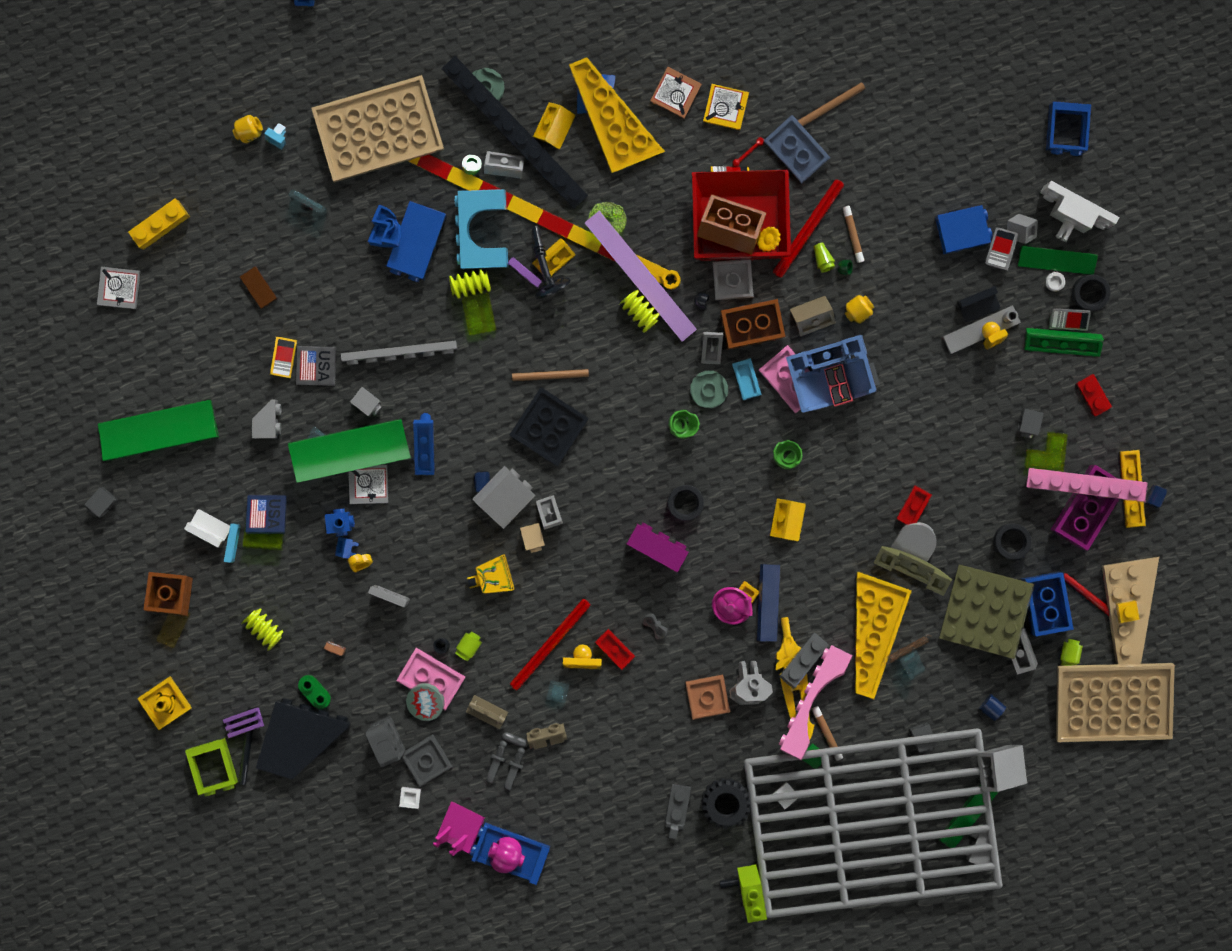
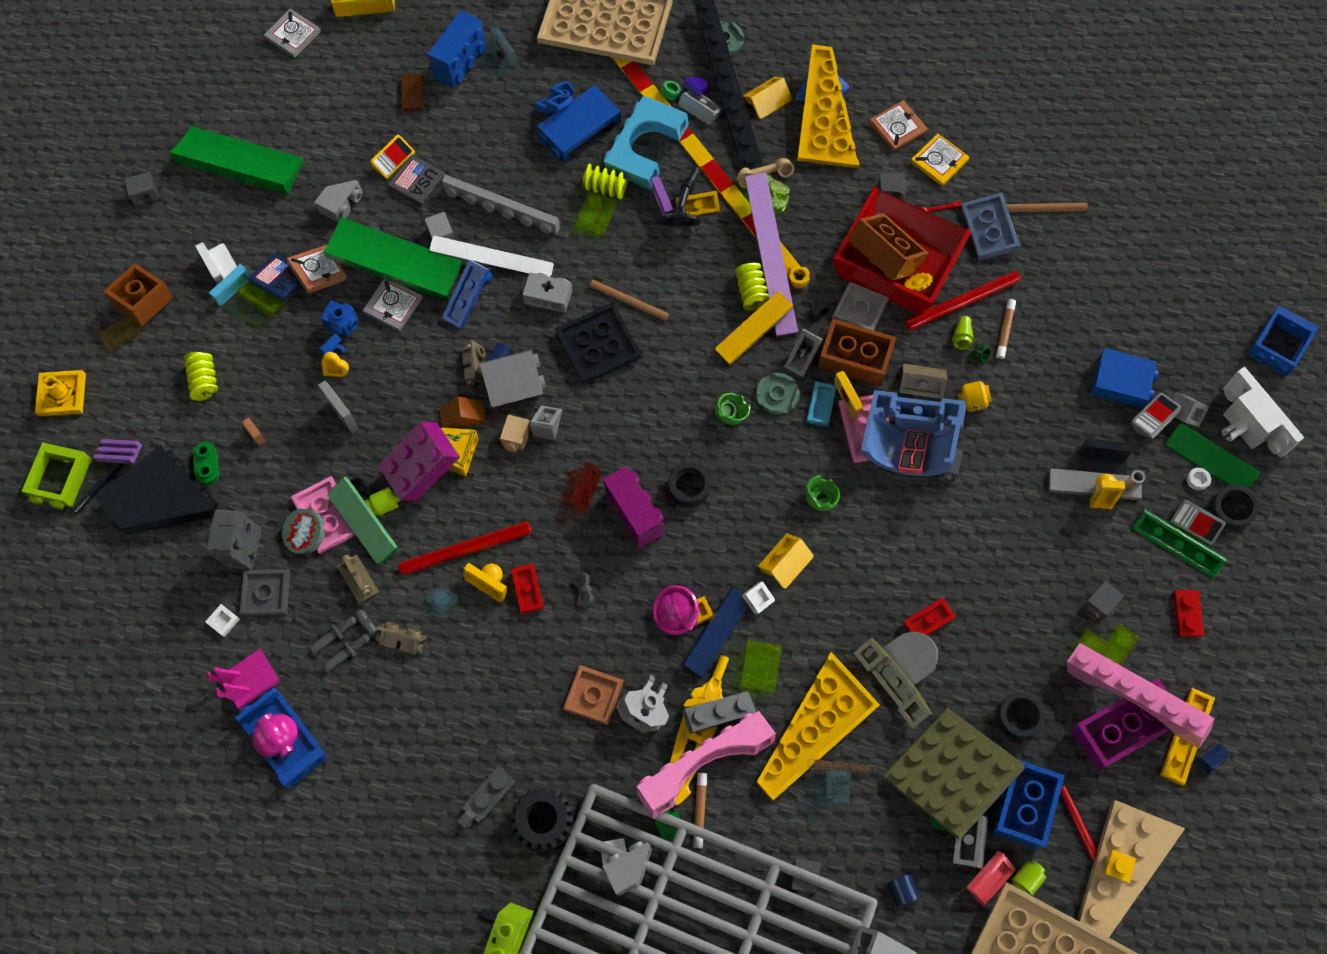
camera: 30 degrees right, 20 degrees down
(275, 231) = (457, 49): none -> blue brick
(288, 493) = (315, 270): none -> tile
(421, 401) = (490, 256): none -> white sticker
(460, 490) = (473, 355): none -> dark tan hinge
(463, 670) = (362, 521): none -> green slope
(478, 414) = (547, 292): none -> light grey brick
(478, 604) = (418, 461): none -> magenta brick
(481, 543) = (462, 412): none -> dark orange slope
(490, 149) = (695, 85): none -> dark purple tile
(580, 214) = (782, 166): none -> tan bar
(608, 541) = (586, 484): none -> clear red tile
(662, 346) = (754, 328): none -> yellow tile
(702, 157) = (894, 184): none -> dark grey brick
(766, 365) = (848, 395): none -> yellow tile
(784, 560) = (758, 597): none -> white tile
(805, 805) = (628, 870): none -> light grey slope
(813, 609) = (761, 666): none -> clear neon green plate
(1046, 666) = (991, 878): none -> coral tile

